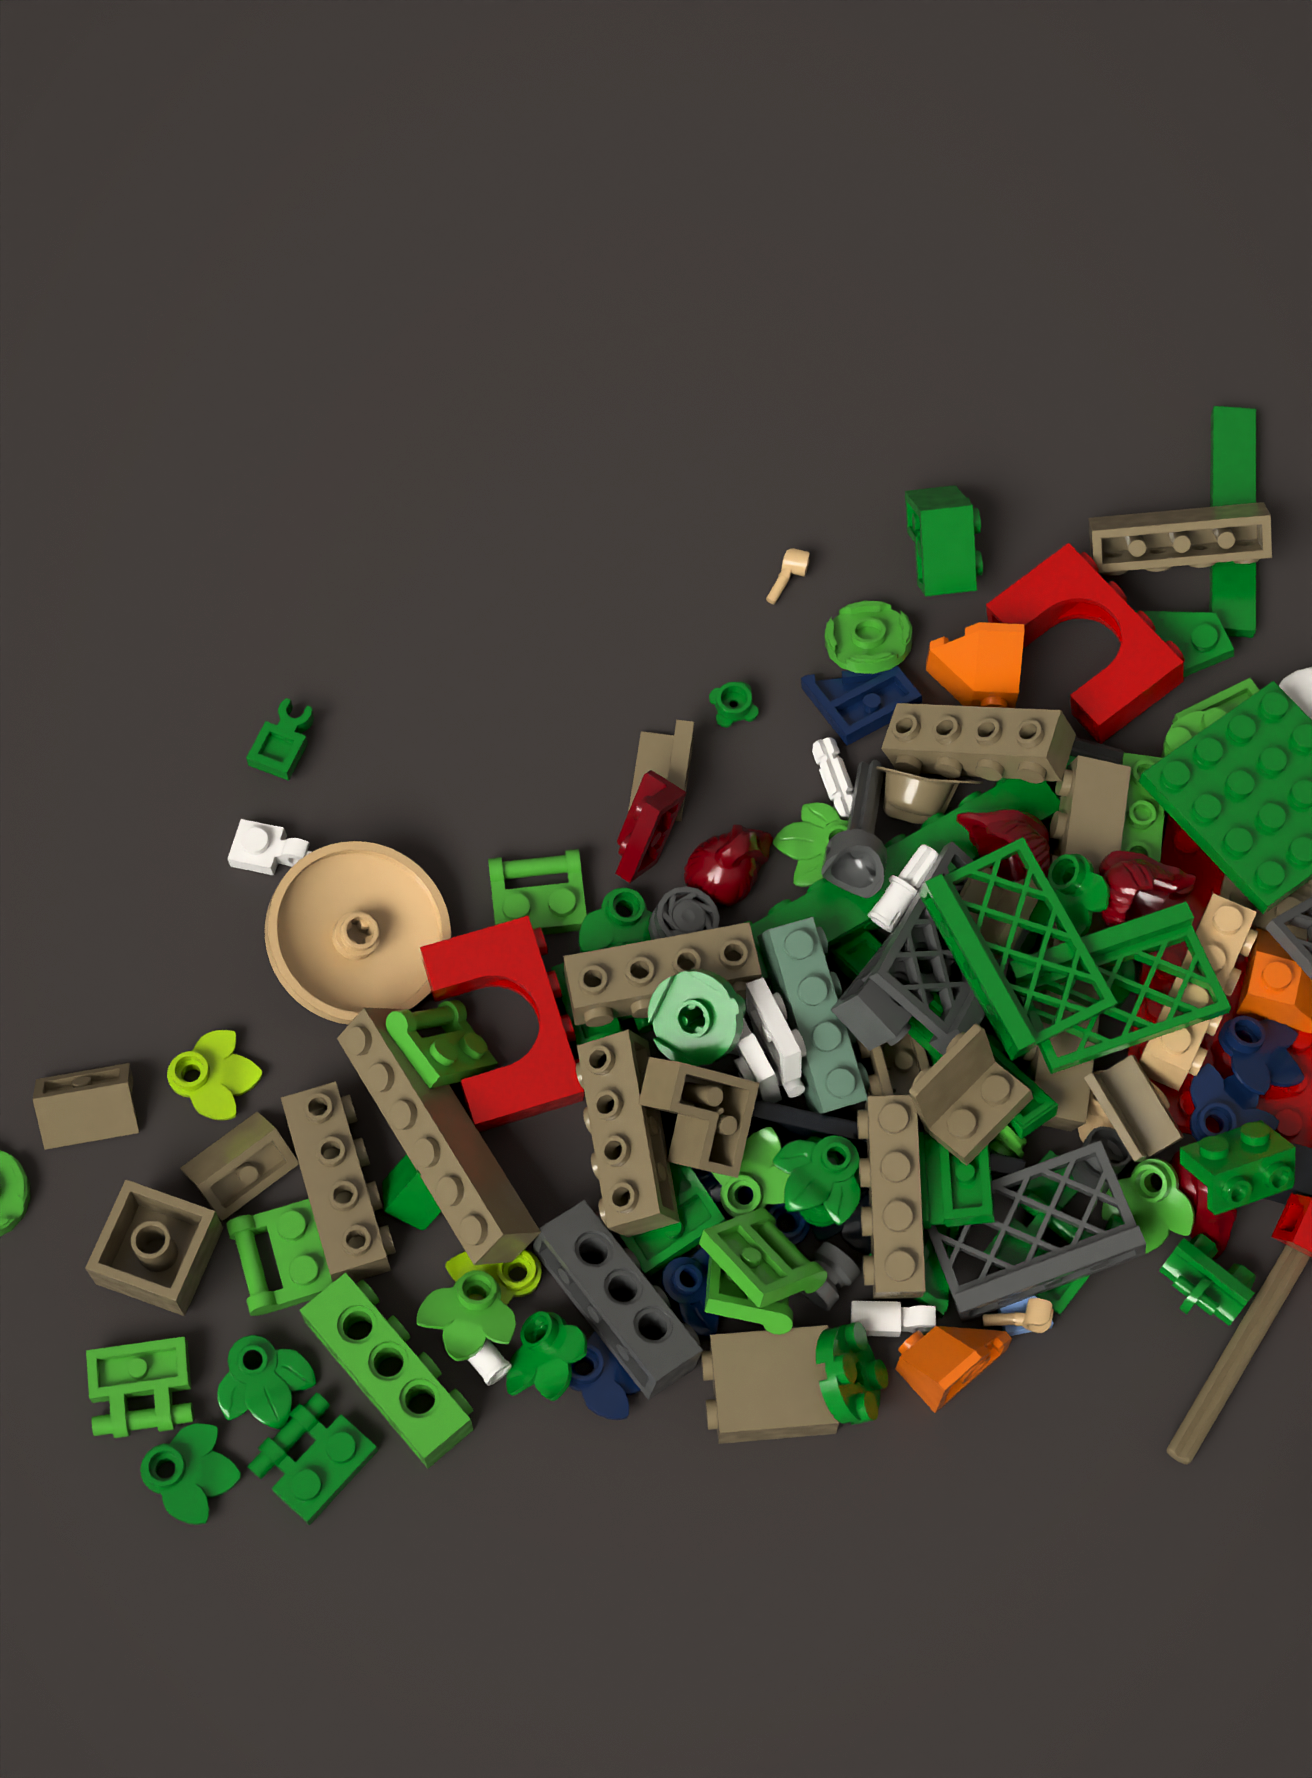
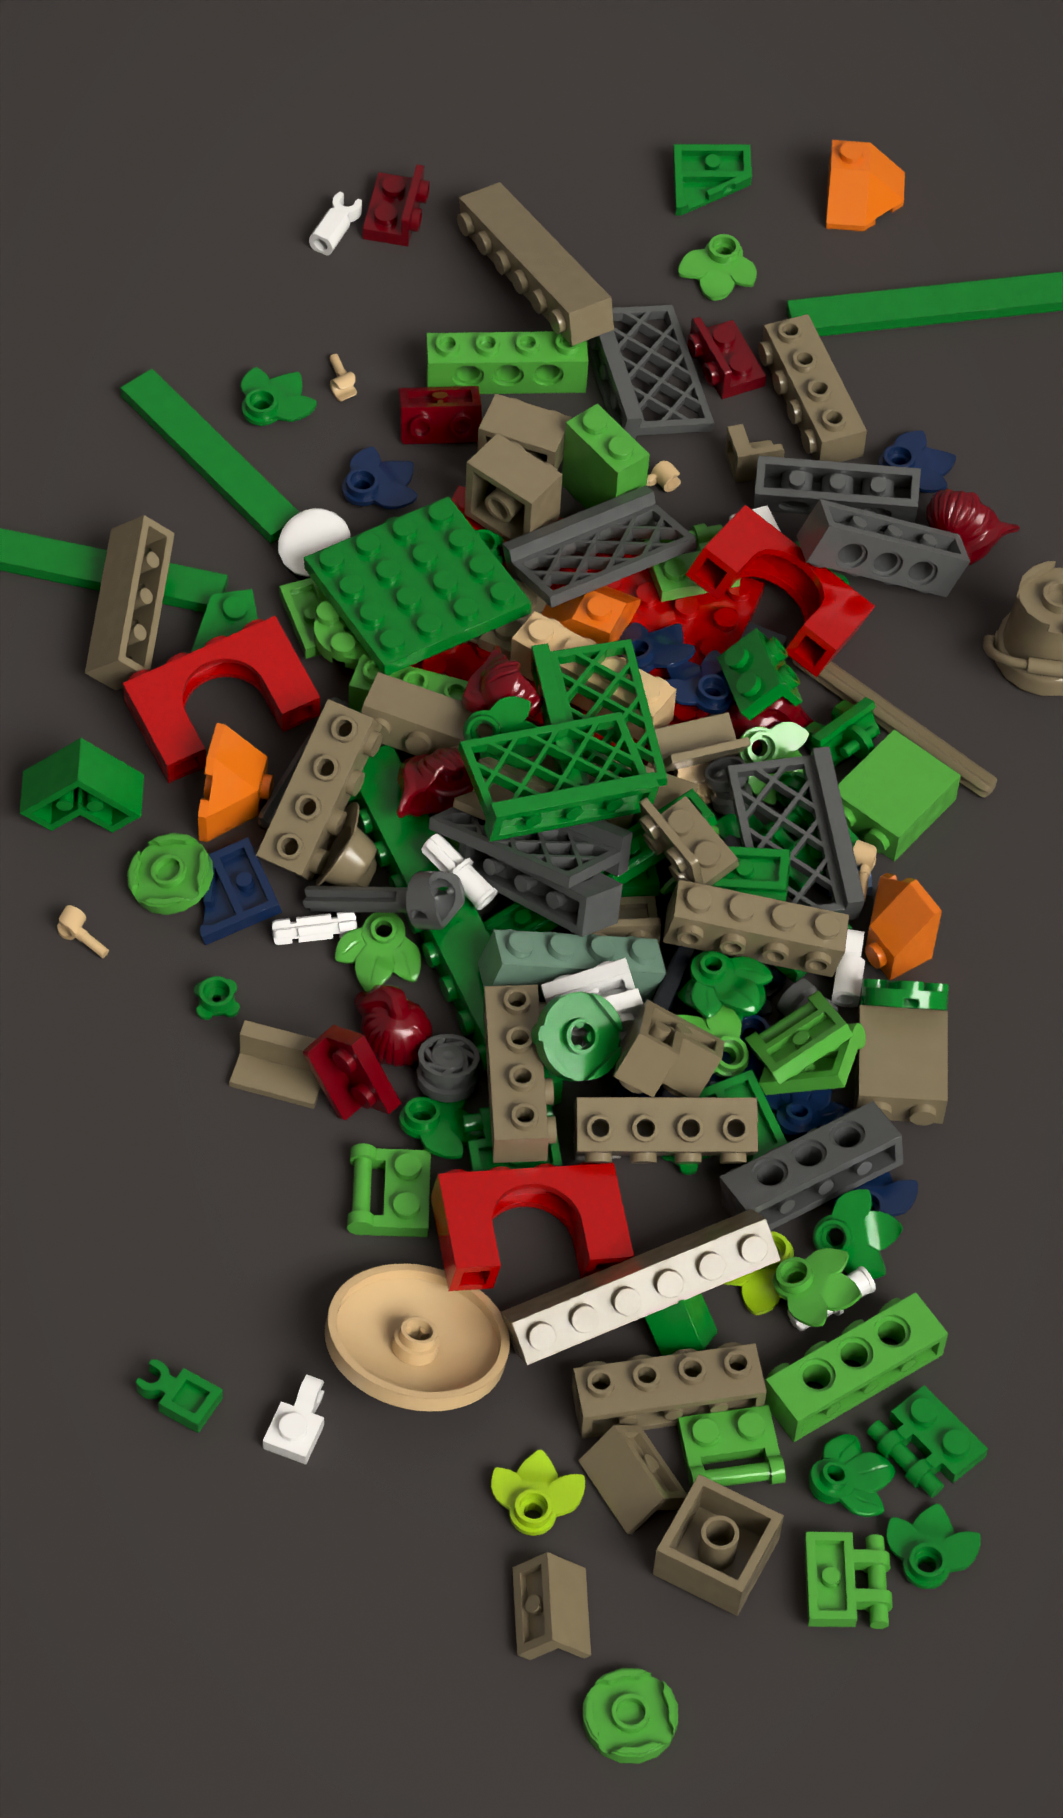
camera: 85 degrees left, 10 degrees down
(441, 1057) = (548, 1276): bright green plate -> none
(1133, 1342) = (896, 794): none -> bright green brick

